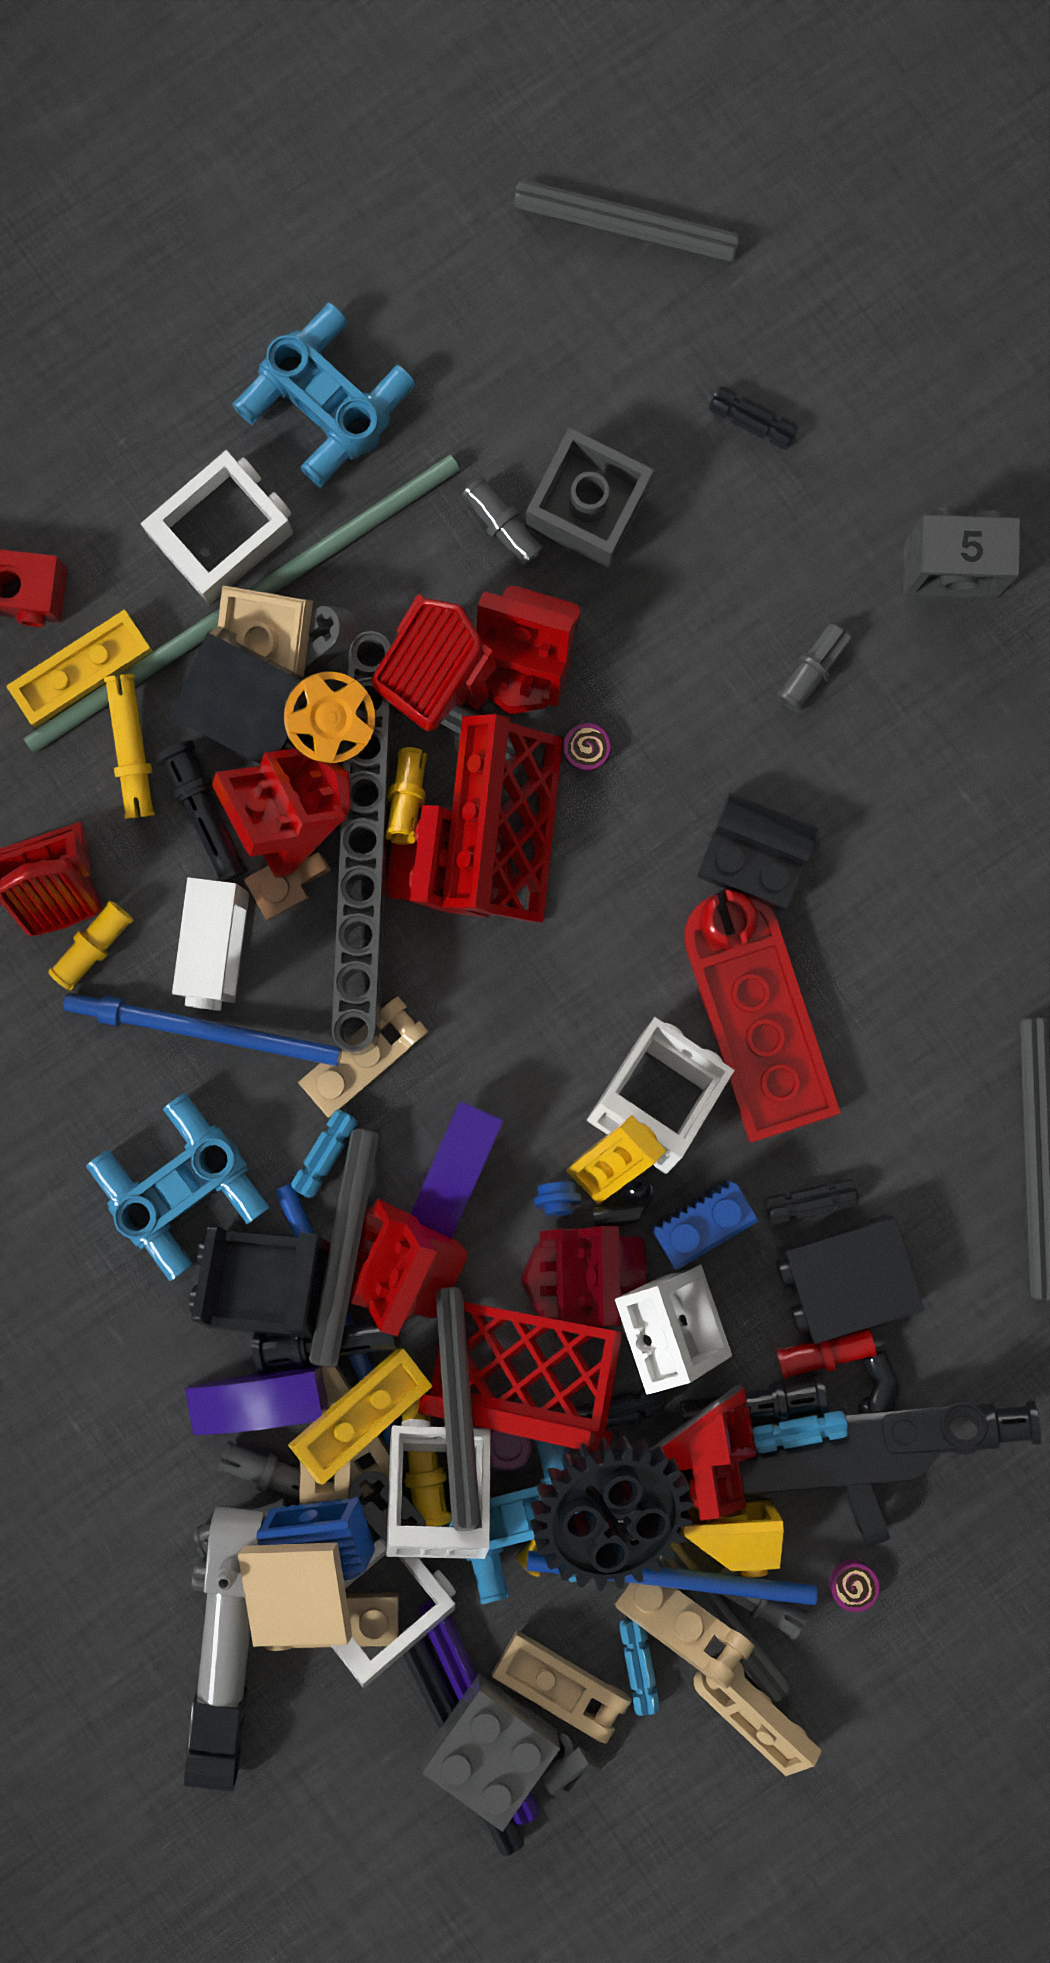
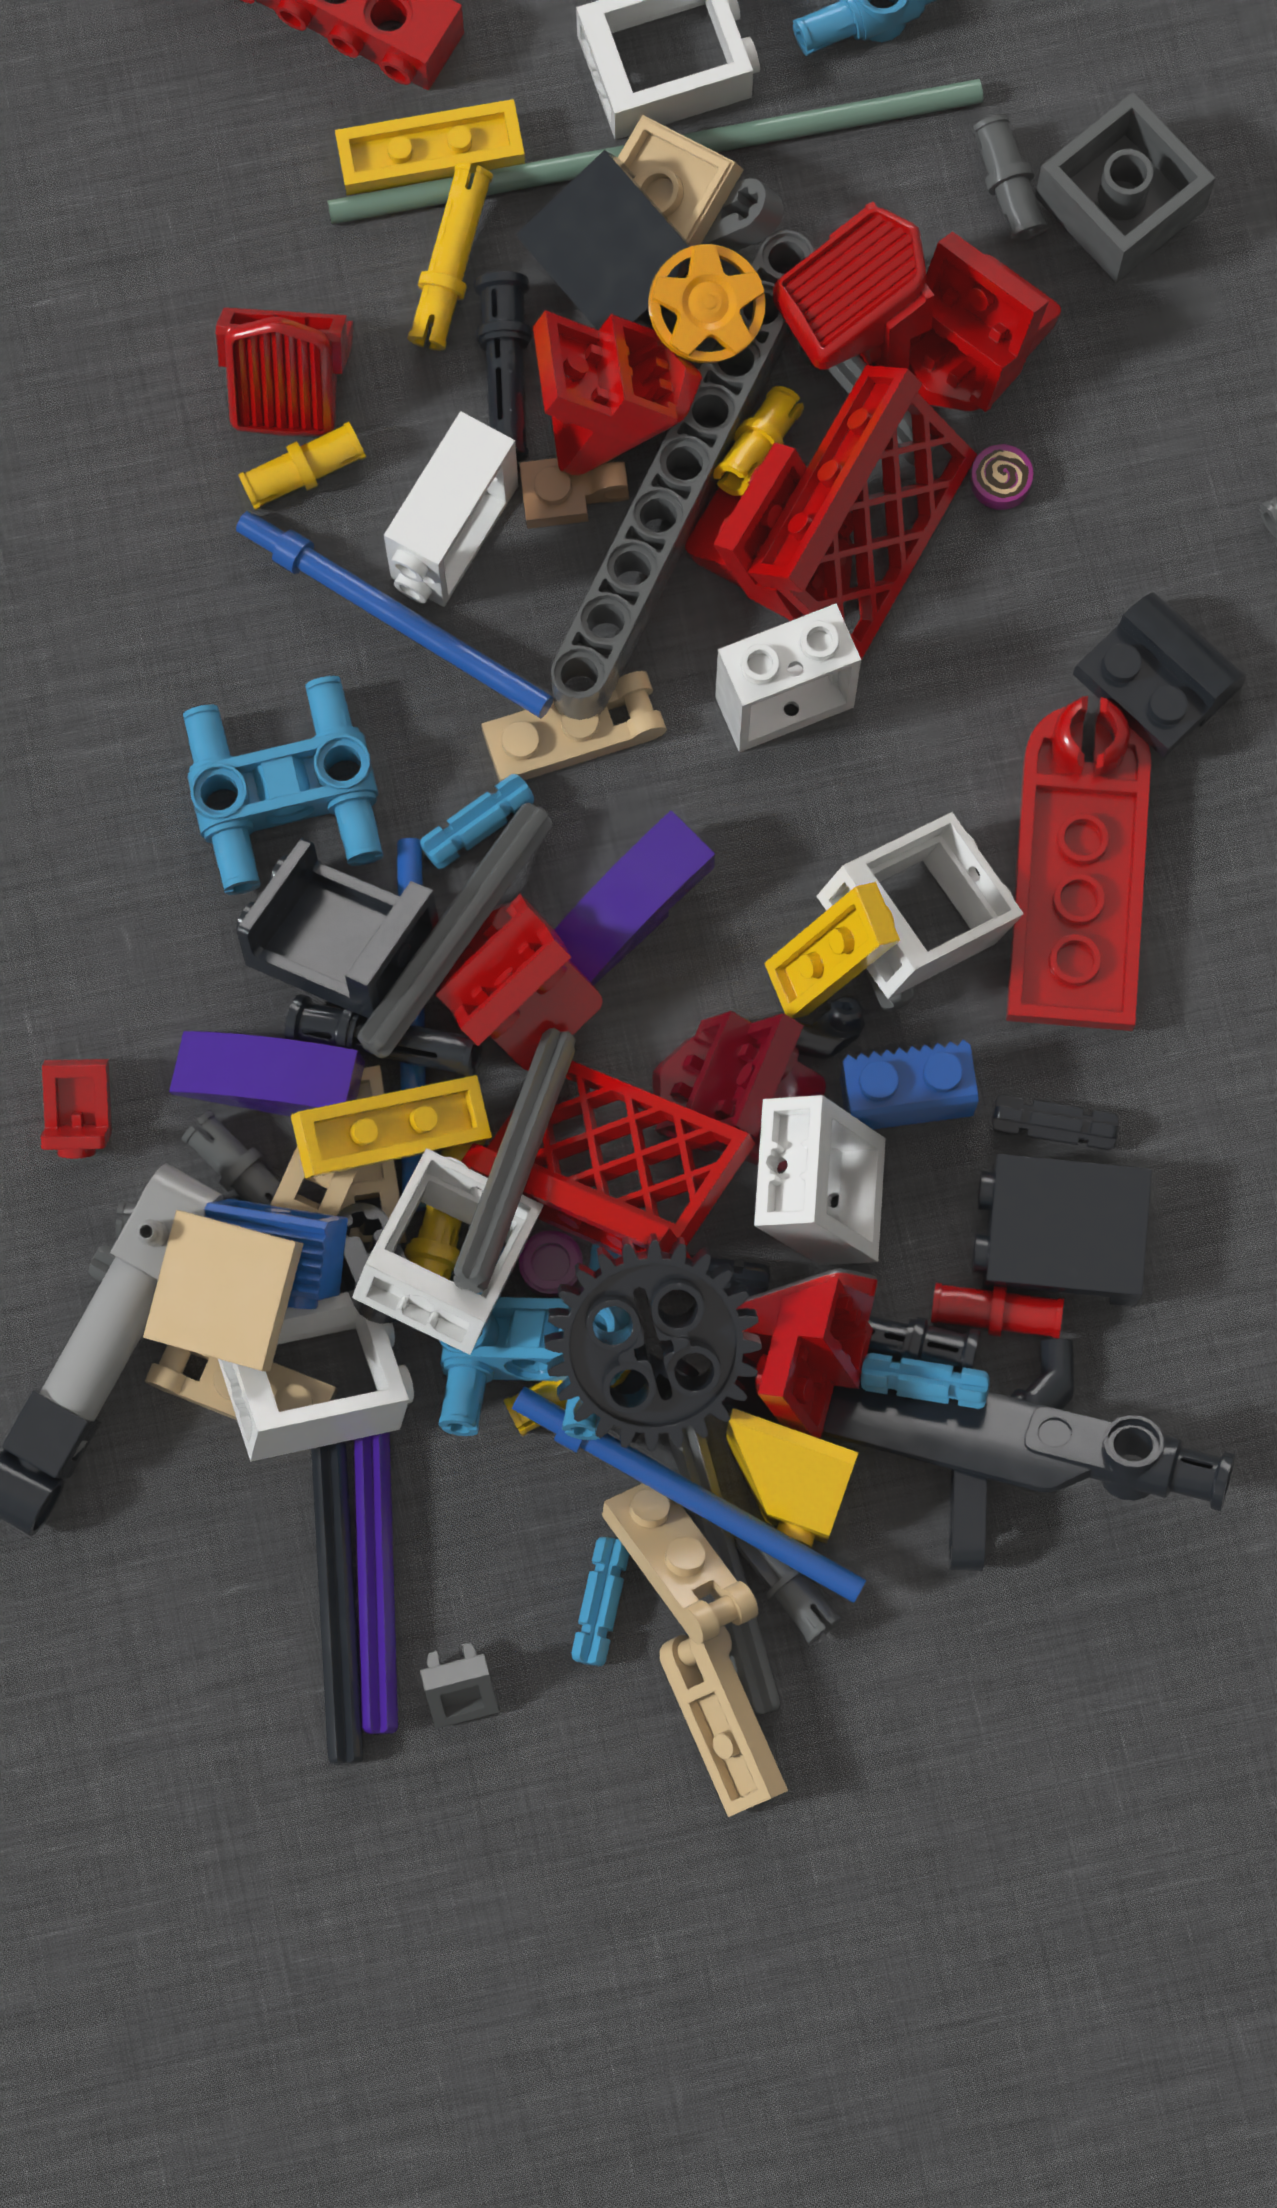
camera: 25 degrees right, 10 degrees down
(134, 1479) = (76, 1106): none -> red bracket
(490, 1752) = (373, 1604): dark grey brick -> none
(512, 953) = (796, 663): none -> white window
(557, 1198) = (740, 986): blue plate -> none
(560, 1686) = (490, 1581): tan plate -> none
(854, 1585) = (914, 1616): tile -> none

